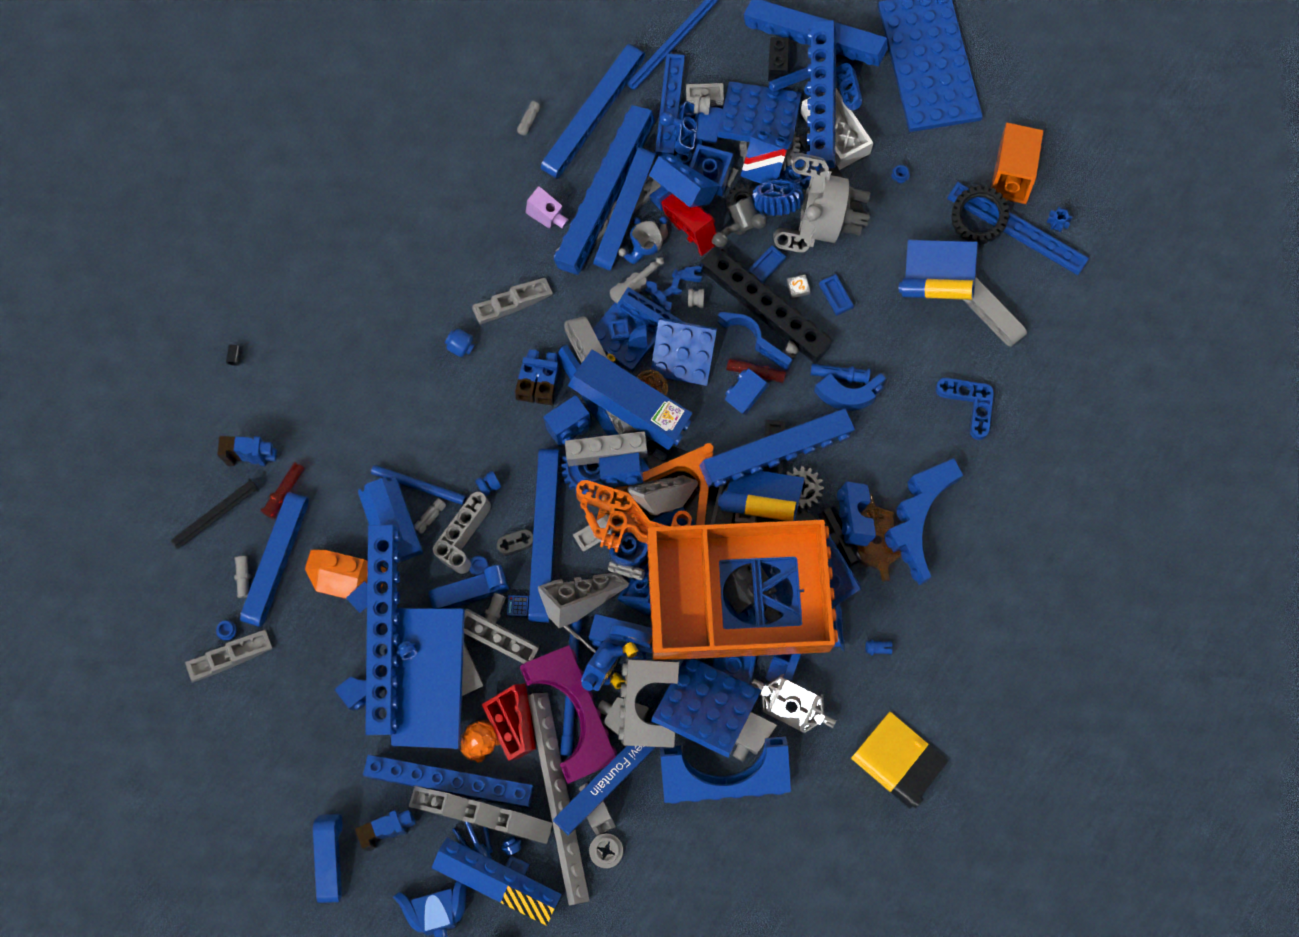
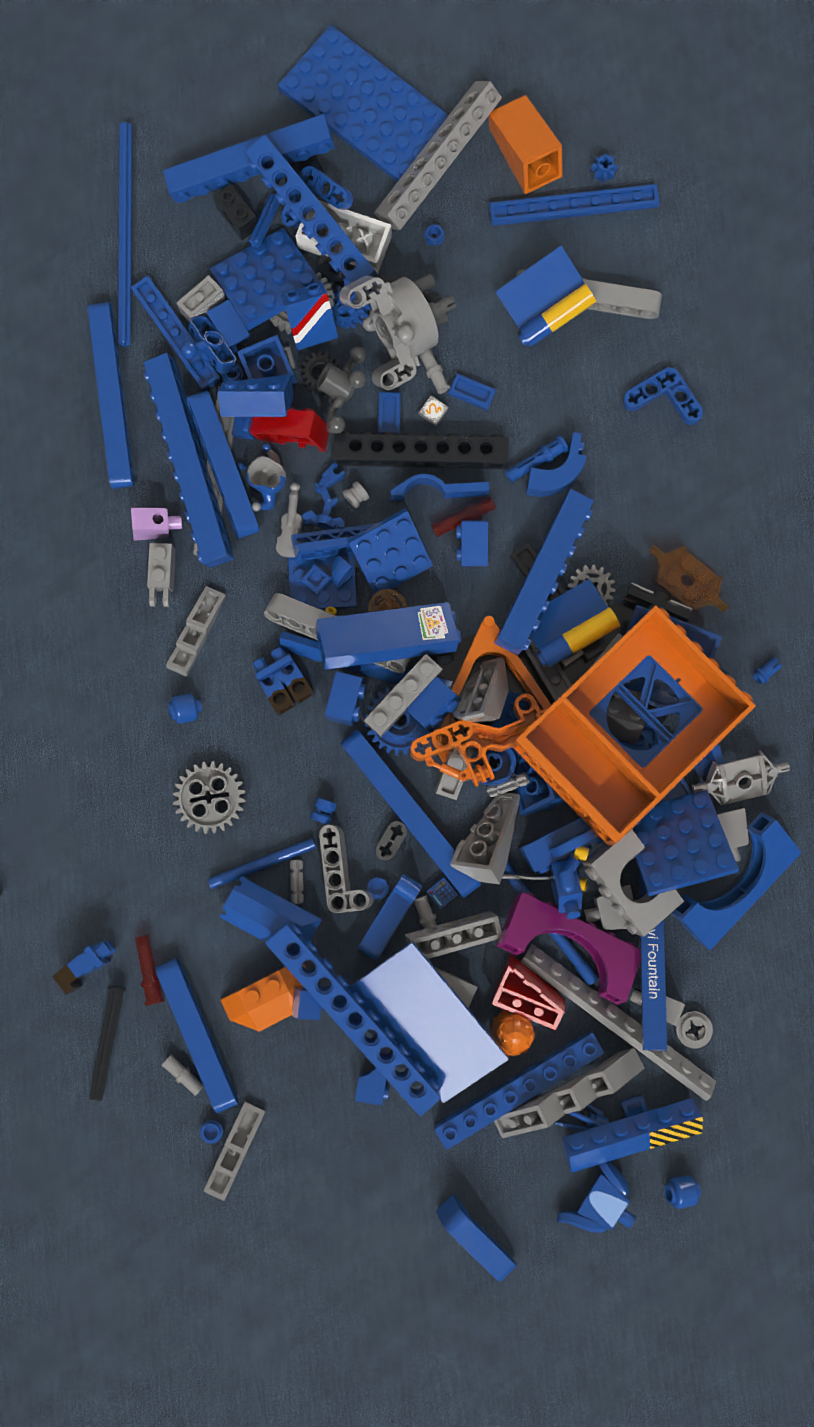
camera: 45 degrees left, 10 degrees up
(384, 827) = (503, 1175): blue hips -> none
(407, 650) = (391, 1016): blue plate -> none
(413, 426) = (207, 778): none -> light grey gear
(511, 845) = (616, 1098): blue plate -> none
(523, 245) = (161, 572): none -> light grey hinge
(528, 118) = (57, 449): light grey axle -> none
(702, 104) = (209, 310): light grey wheel -> none
(778, 197) = (353, 343): blue gear -> none
(791, 349) = (476, 474): light grey hinge -> none
(821, 261) = (434, 371): none -> light grey pin
(855, 527) = (668, 585): blue arch -> none
(908, 535) = (703, 533): blue arch -> none
(947, 123) = (438, 154): none -> light grey brick
(969, 194) = (561, 215): black tyre -> none

